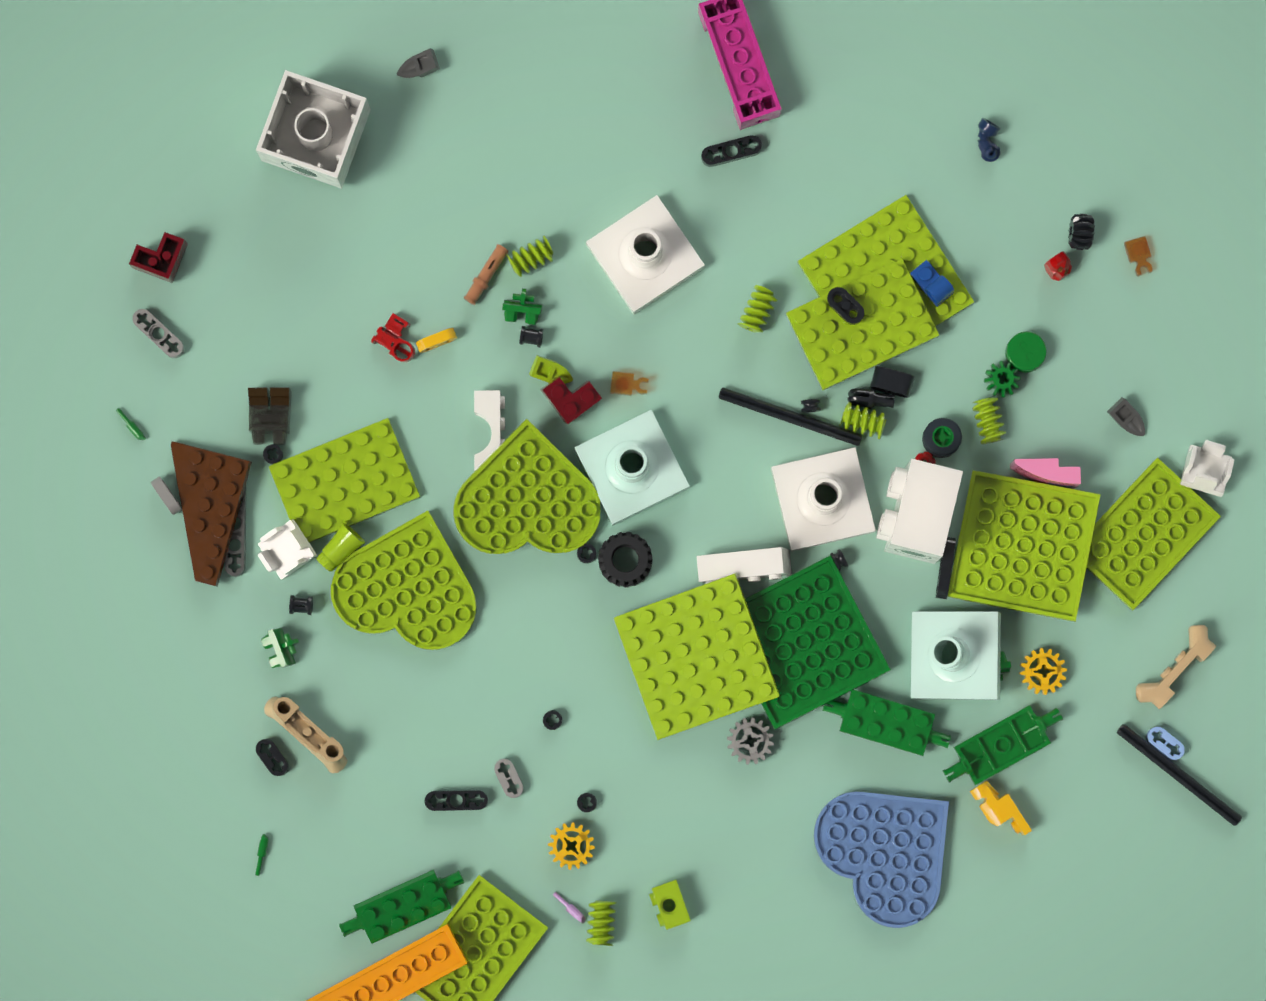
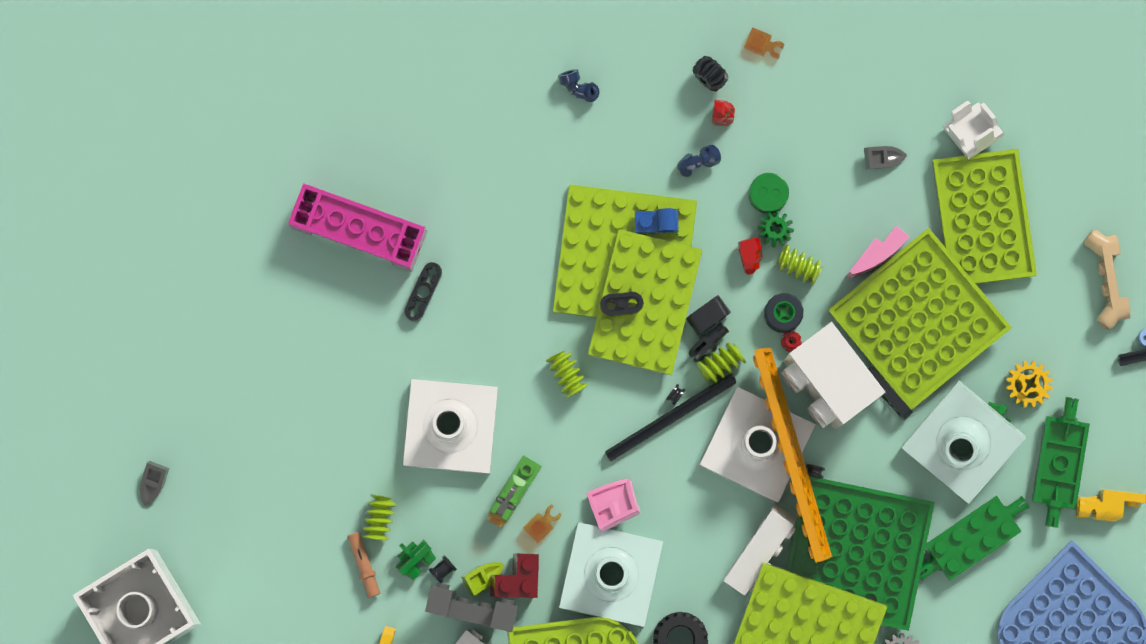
camera: 50 degrees left, 0 degrees up
(508, 360) = (442, 603): none -> dark grey wedge
(634, 342) = (513, 491): none -> bright green plate
(687, 425) = (613, 503): none -> bright pink plate
(840, 525) = (794, 462): none -> light orange plate
(966, 376) = (750, 254): none -> red rock
(1015, 282) = (708, 156): none -> dark blue arm

